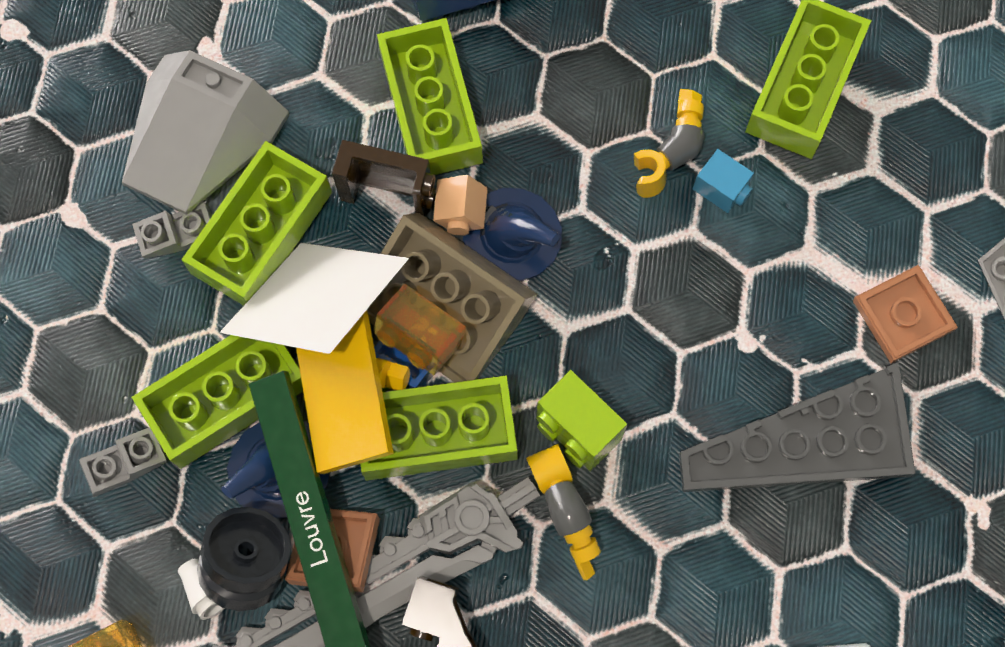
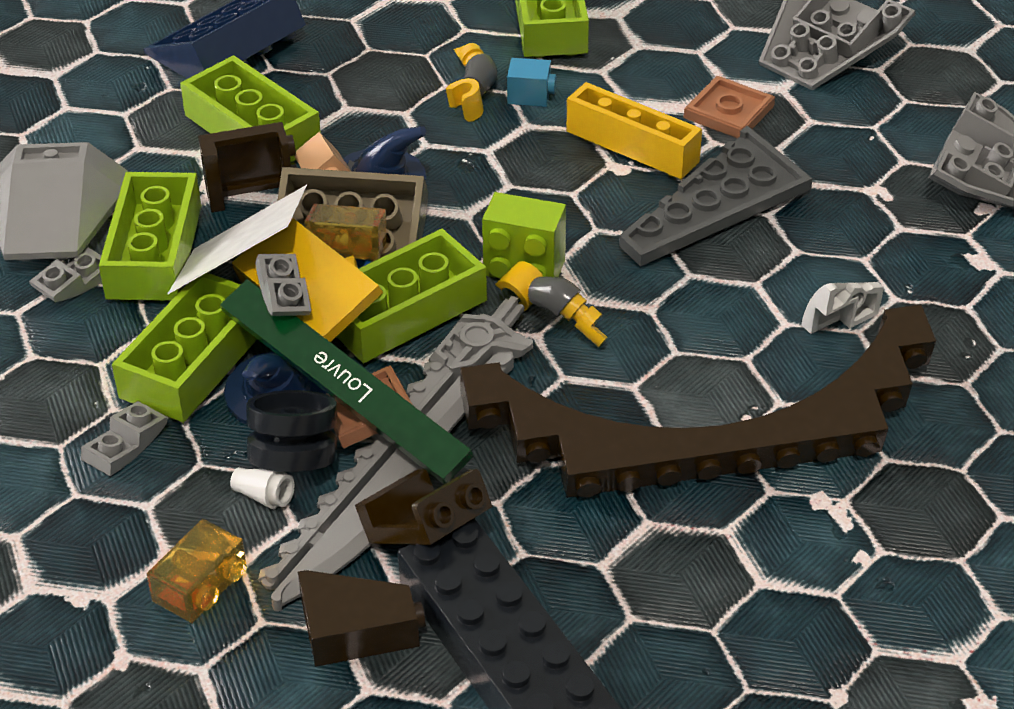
camera: 30 degrees left, 30 degrees down
(306, 402) = (281, 285): none -> light grey slope
(778, 314) = (634, 130): none -> yellow brick

